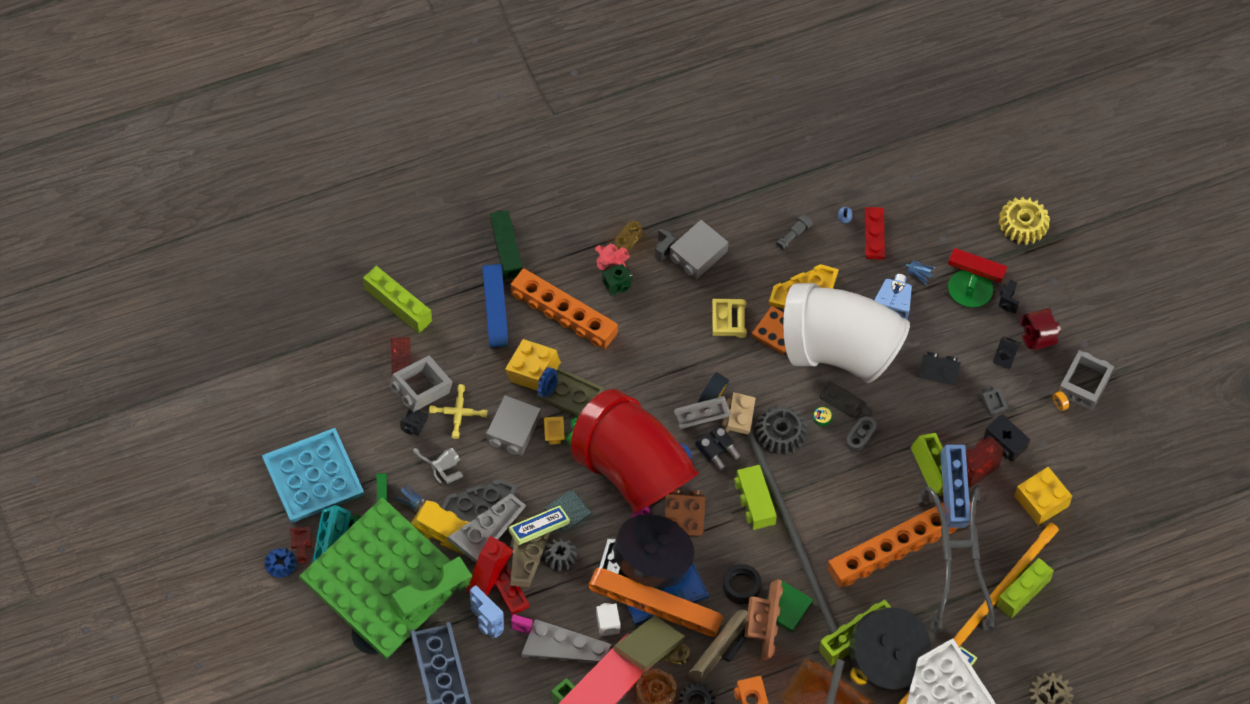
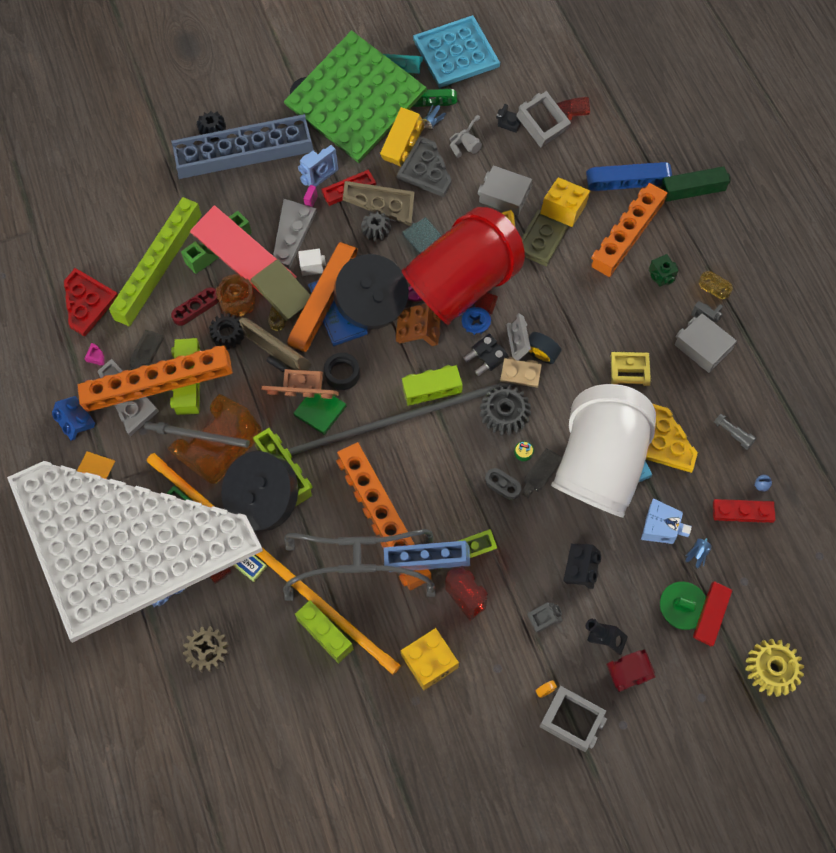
camera: 95 degrees right, 5 degrees up
(279, 570) = (376, 39): blue gear -> none
(301, 540) = (395, 44): clear red plate -> none
(397, 299) = (629, 102): lime brick -> none
(410, 601) = (351, 139): bright green arch -> none
(458, 411) = (521, 152): light yellow piece -> none
(489, 565) = (363, 167): red slope -> none
(493, 523) = (397, 165): light grey wing -> none
(539, 525) = (403, 207): tile -> none
(548, 382) = (544, 215): blue gear -> none
(611, 256) = (687, 265): coral hips -> none
(1006, 301) = (677, 641): black bracket -> none
(1008, 437) = (493, 637): black brick -> none

